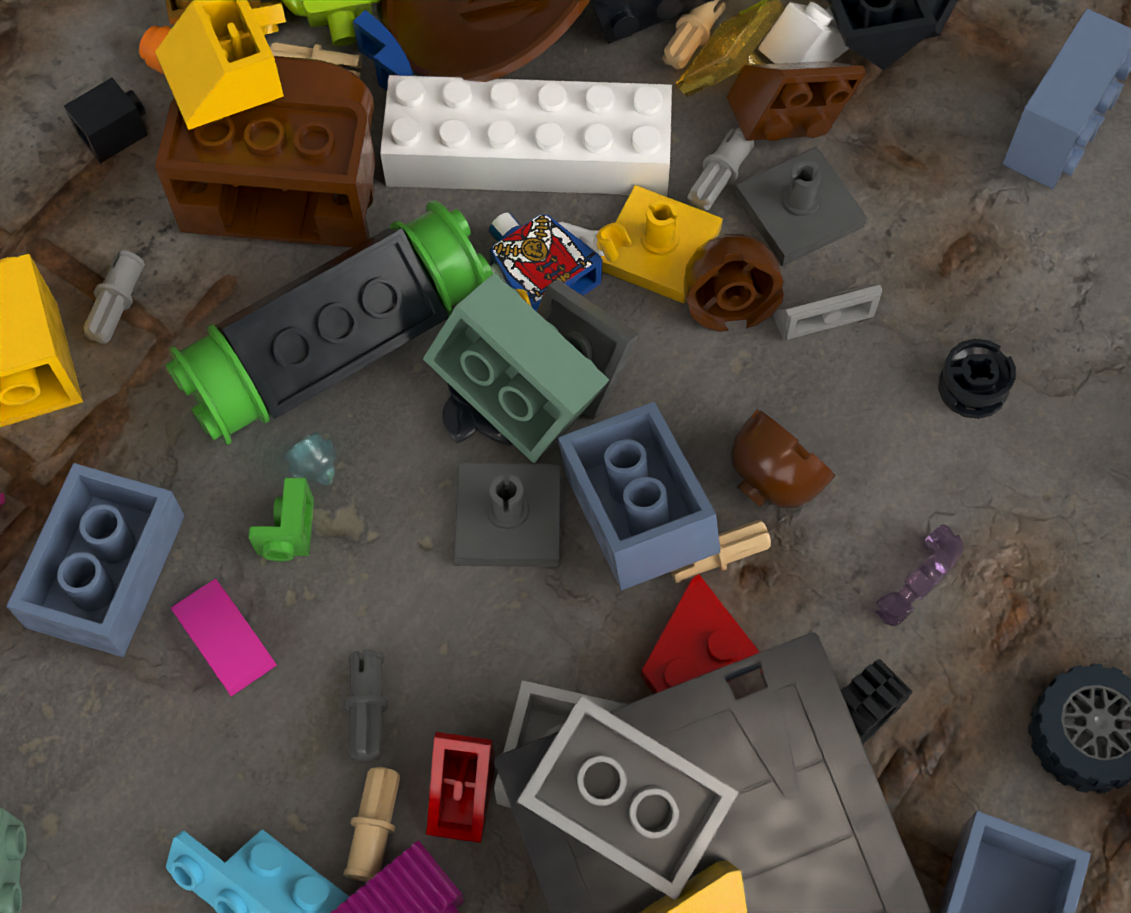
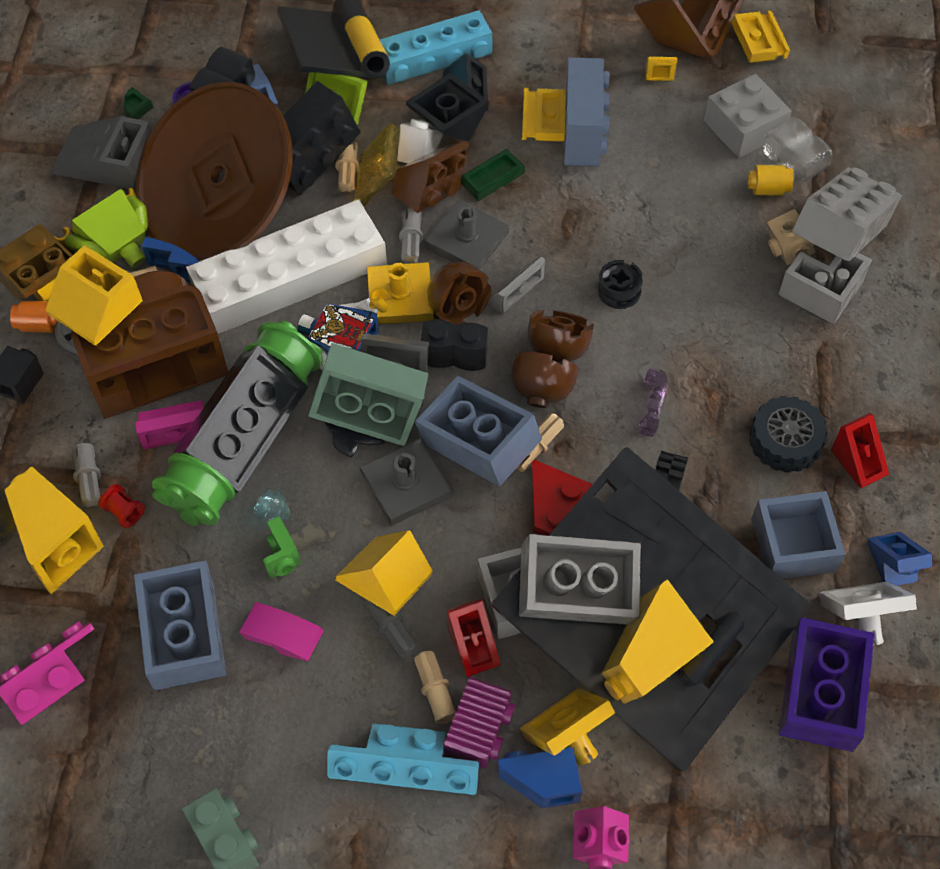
camera: 30 degrees left, 5 degrees down
(129, 360) = (121, 506): none -> red bush
(246, 275) = (166, 424): none -> dark pink panel
(403, 630) = (387, 571): none -> yellow slope
(690, 356) = (456, 345): none -> black brick
(837, 414) = (559, 335): none -> reddish brown cylinder
(889, 132) = (492, 174): none -> dark green tile
(1010, 76) = (544, 114): none -> yellow plate

